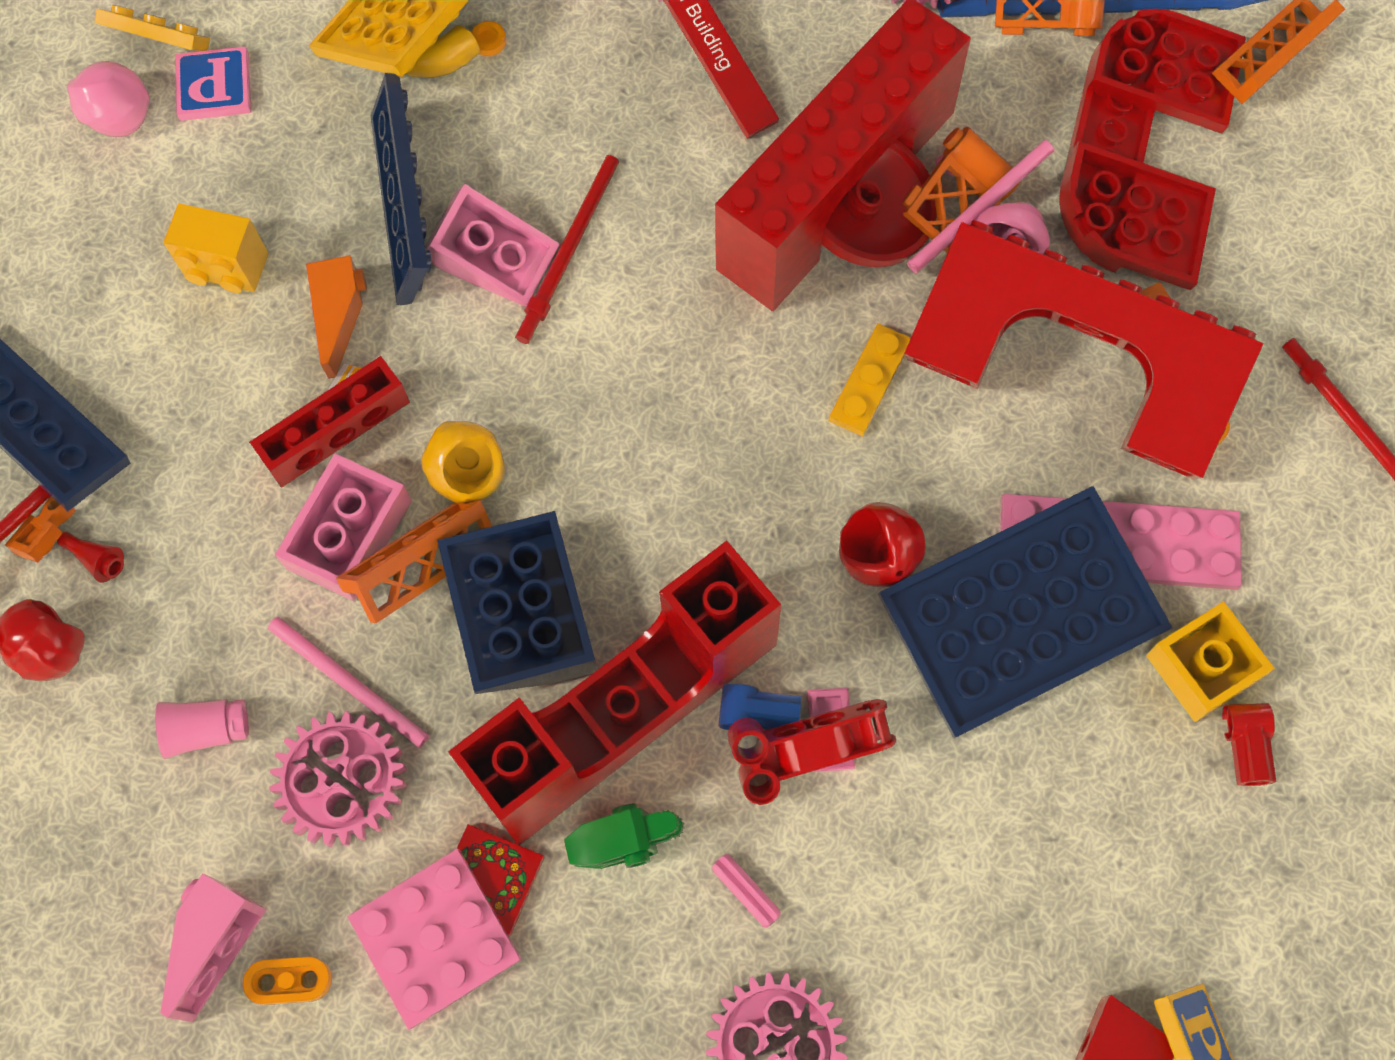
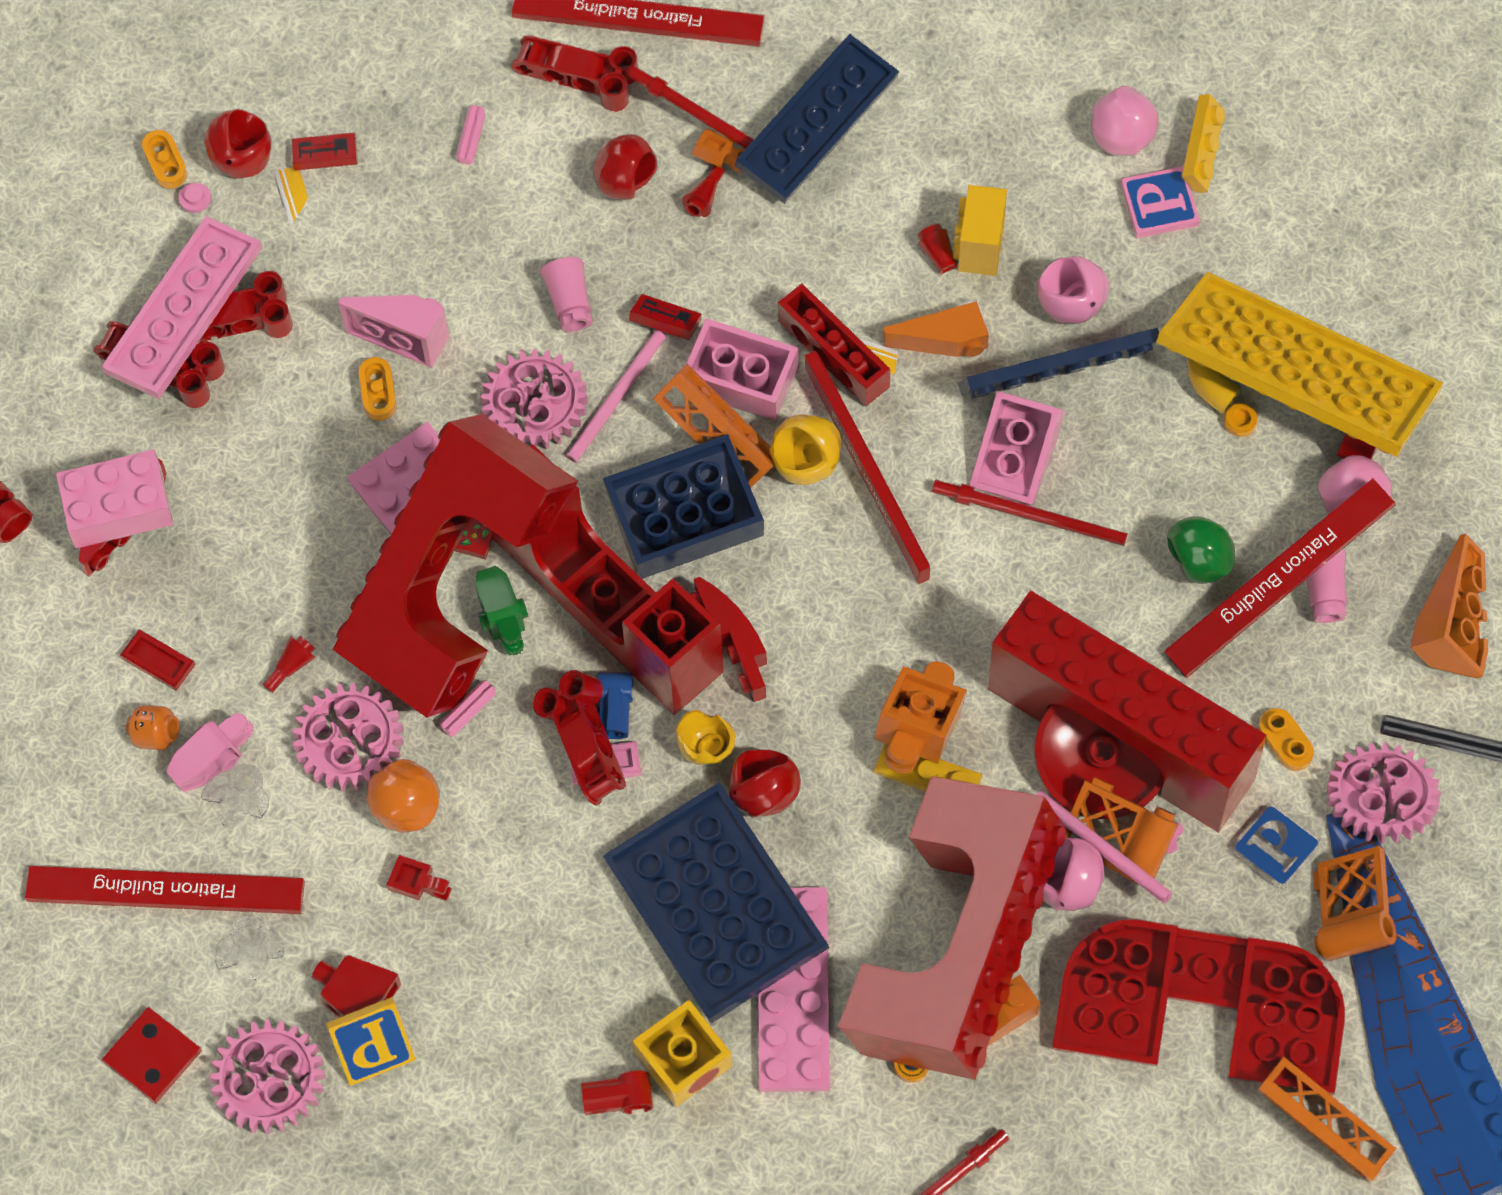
camera: 85 degrees right, 5 degrees down
(223, 305) = (937, 246): none -> red cone
(253, 613) = (665, 316): none -> red tile
(310, 168) = (1072, 289): none -> bright pink piece
(490, 403) = (867, 467): none -> red tile
(506, 821) = (396, 620): none -> red arch
(642, 76) = (1202, 549): none -> green piece
(669, 564) = (738, 636): none -> red slope
(819, 606) = (704, 738): none -> yellow hair
(824, 356) = (919, 716): none -> orange brick
(854, 34) = (1285, 738): none -> light orange plate
(869, 975) = (403, 796): none -> orange piece
(970, 972) = (414, 877): none -> red plate
(987, 64) = (1276, 847): none -> tile

